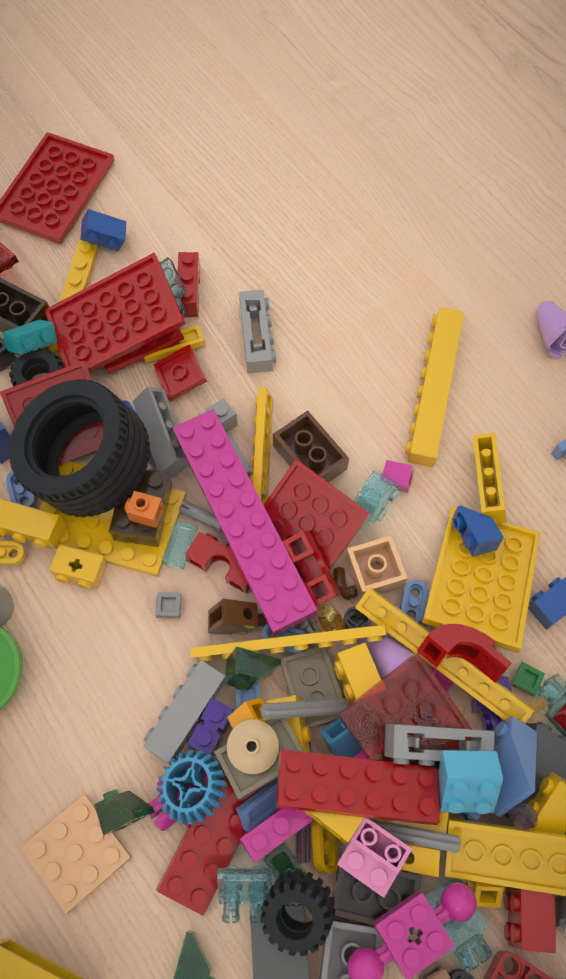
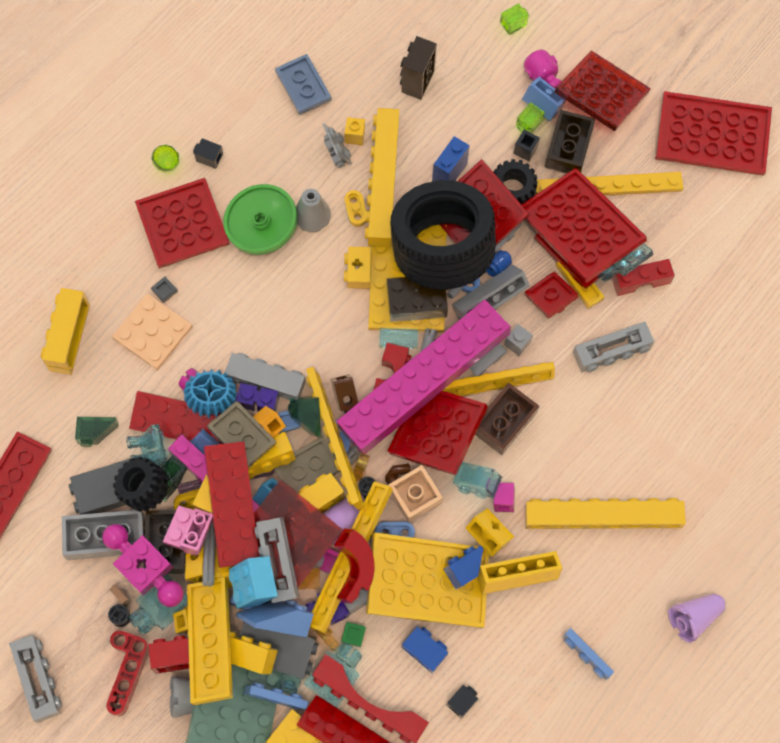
camera: 75 degrees right, 5 degrees up
(22, 823) = (164, 289): none -> dark grey tile
(30, 337) = (542, 165): teal brick -> none
(103, 230) = (674, 189): blue brick -> none
(121, 810) = (185, 351): clear green slope -> none
(144, 509) = (407, 298): orange brick -> none
(168, 605) = (345, 343): flat silver plate -> none
(266, 750) = (252, 431): tan dish -> none
(303, 708) = (282, 456): light grey axle -> none
(318, 577) = (409, 433): red arch -> none
(436, 499) = (489, 532): none -> yellow brick
(524, 816) = (237, 628): plate -> none

